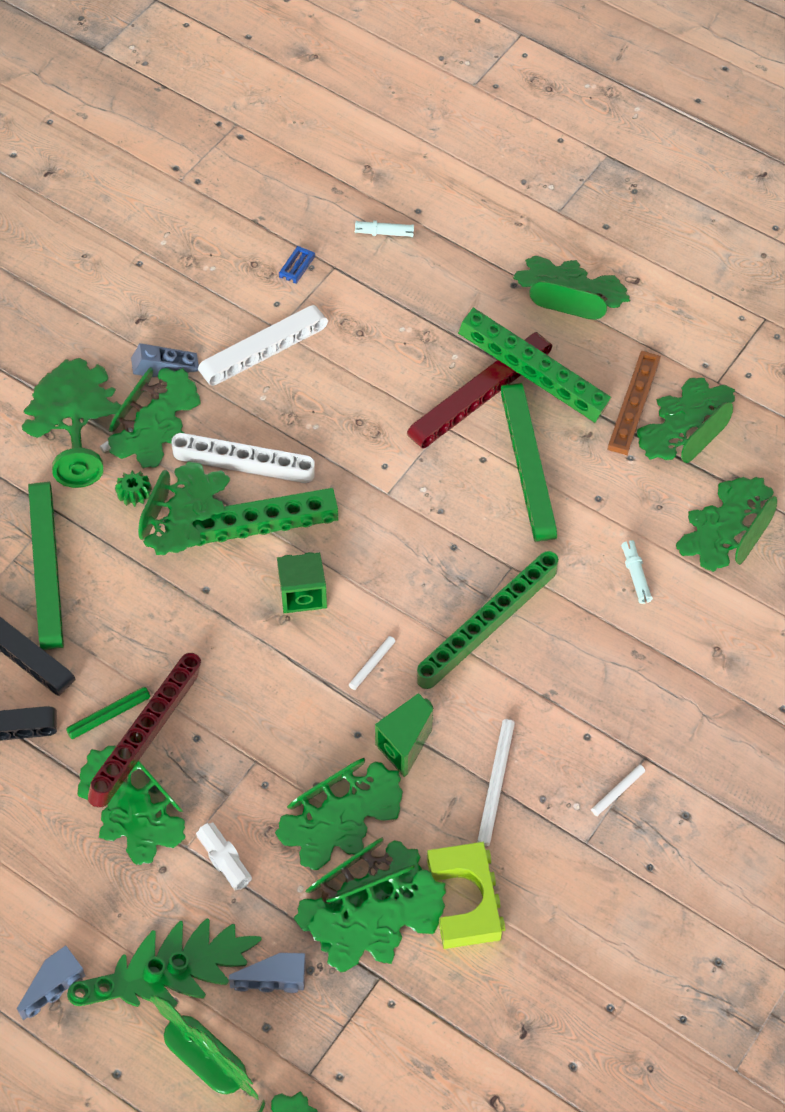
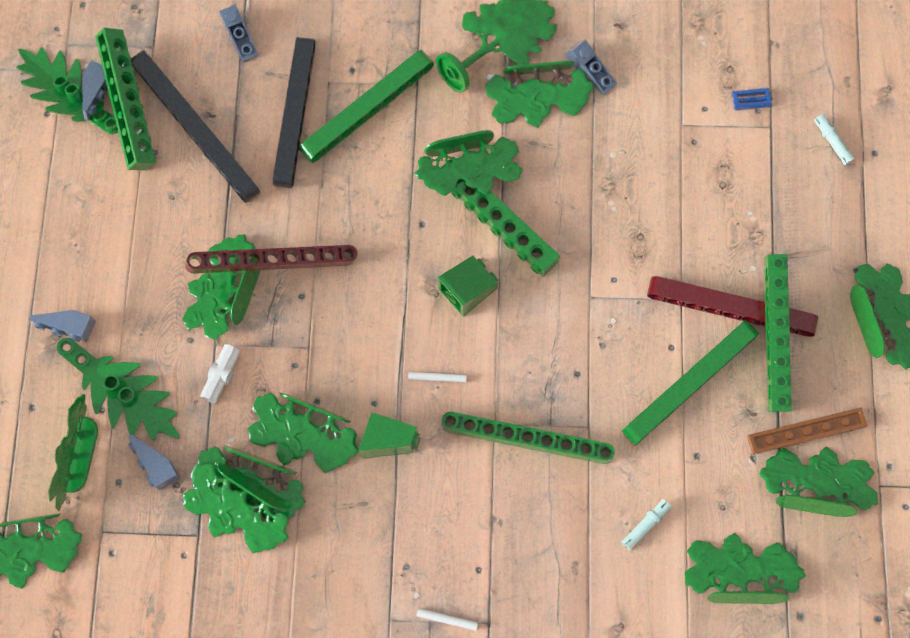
camera: 60 degrees right, 15 degrees up
(108, 712) = (281, 225): green axle -> none
(133, 488) = (460, 122): green gear -> none
(243, 458) = (545, 185): white beam -> none
(262, 345) = (657, 124): white beam -> none
(470, 863) = (279, 584): lime arch -> none
(496, 782) = (396, 525): white axle -> none

